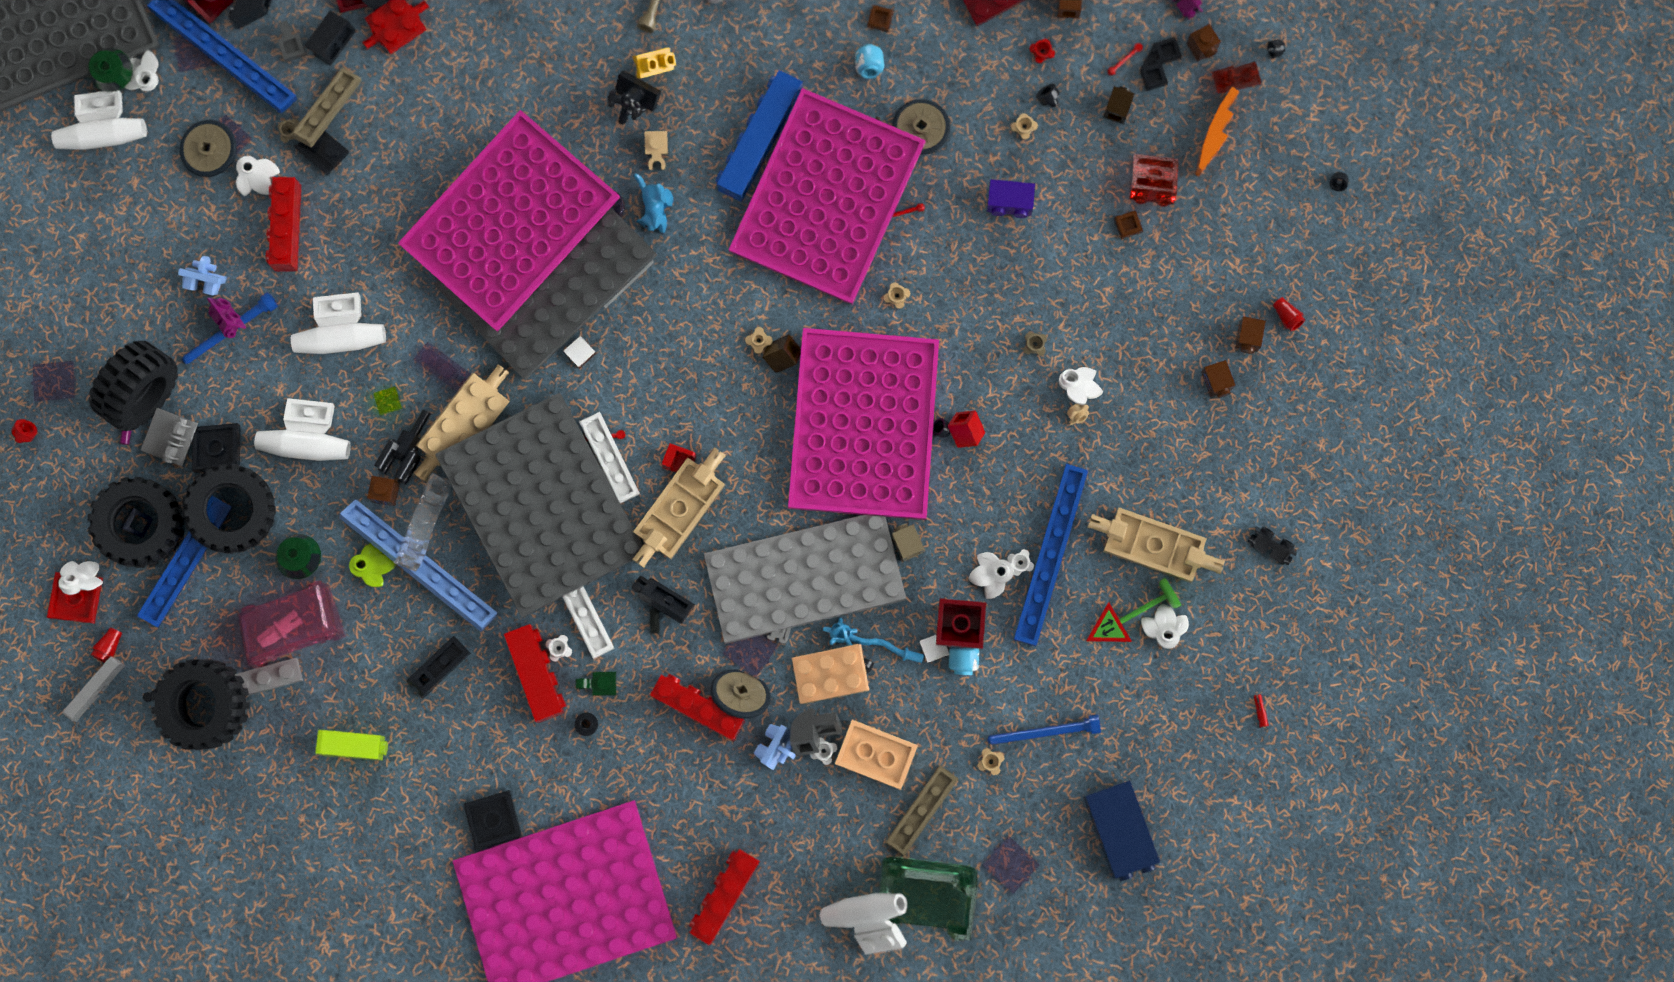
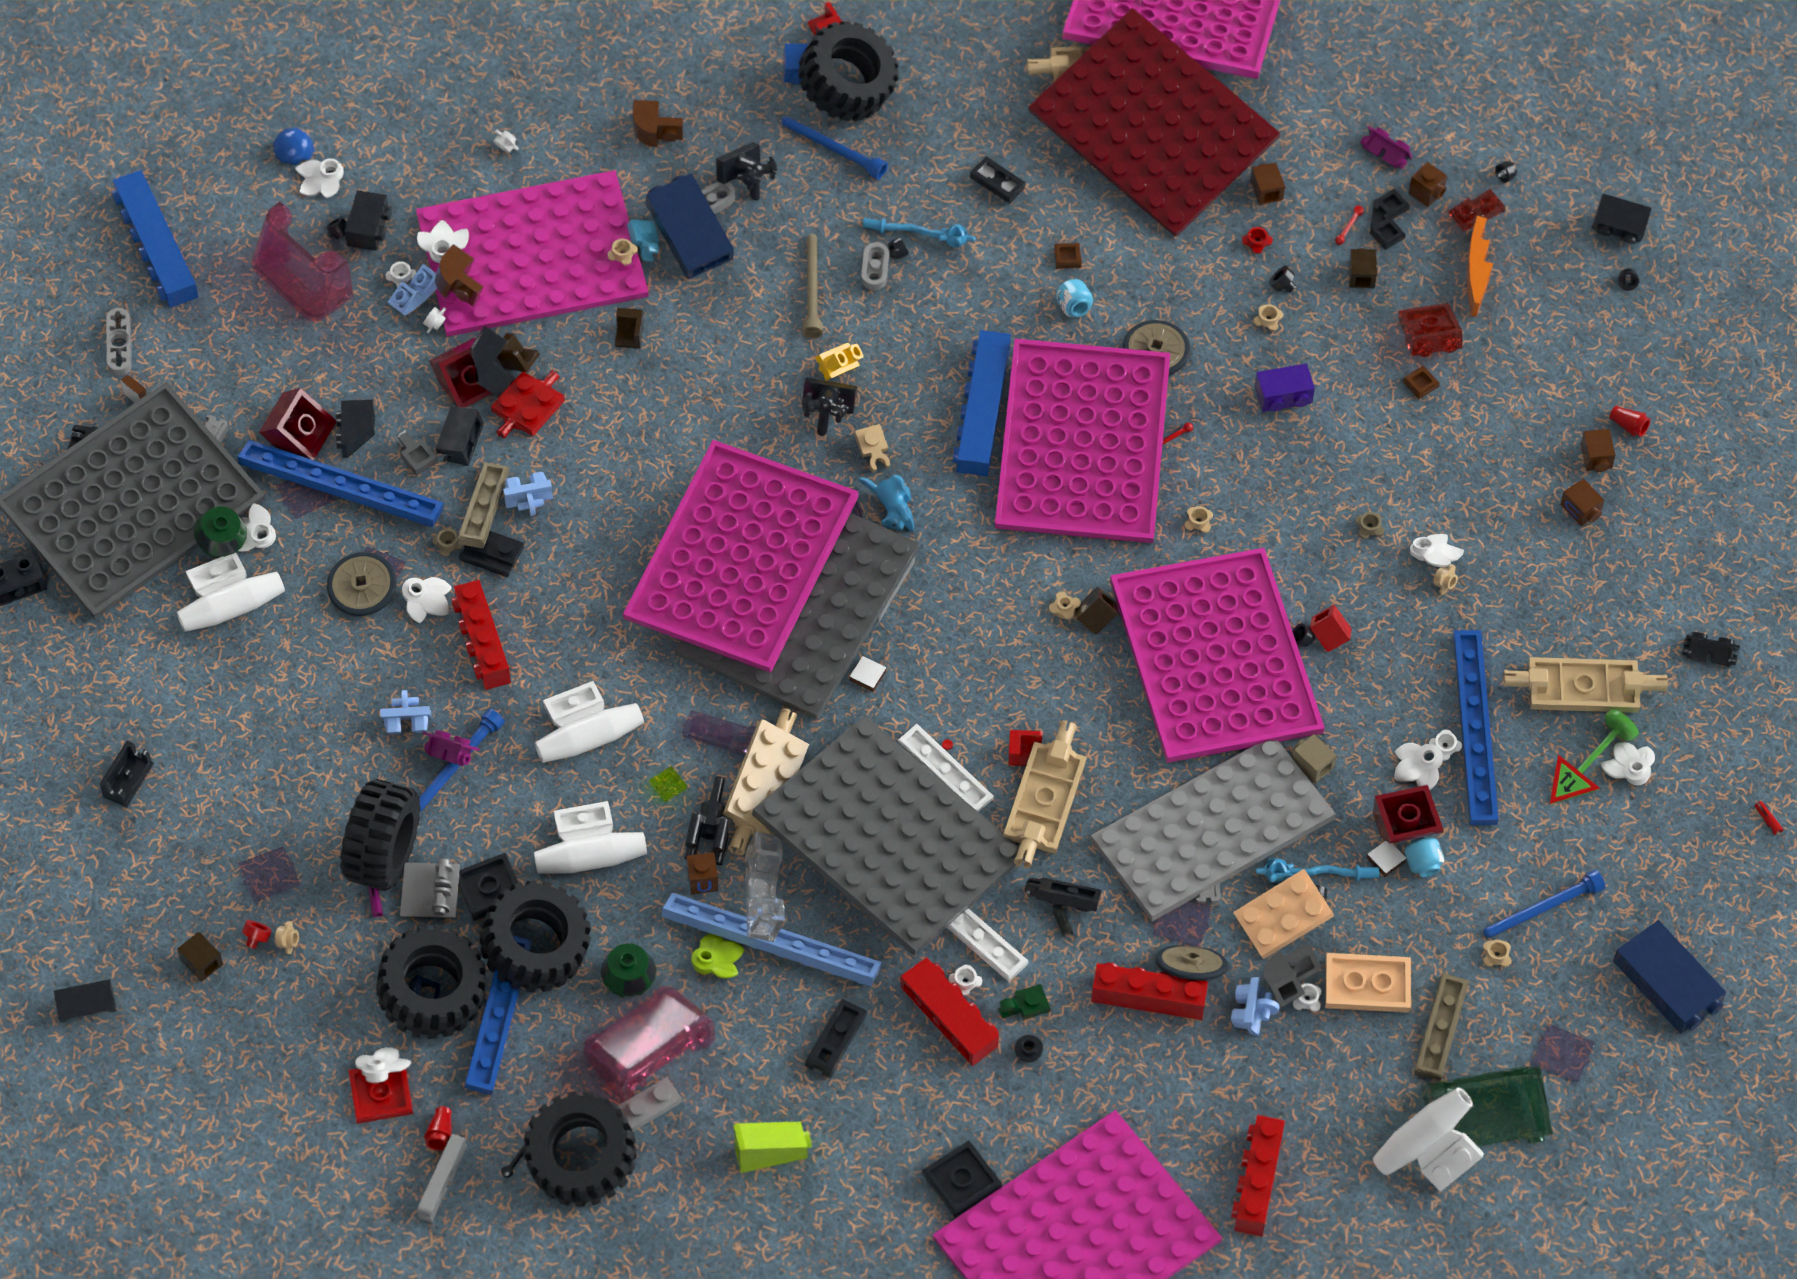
camera: 20 degrees left, 20 degrees down
(45, 443) = (287, 937): none -> tan plate
(365, 110) = (528, 495): none -> light blue hips
(1354, 124) = (1621, 218): none -> black brick

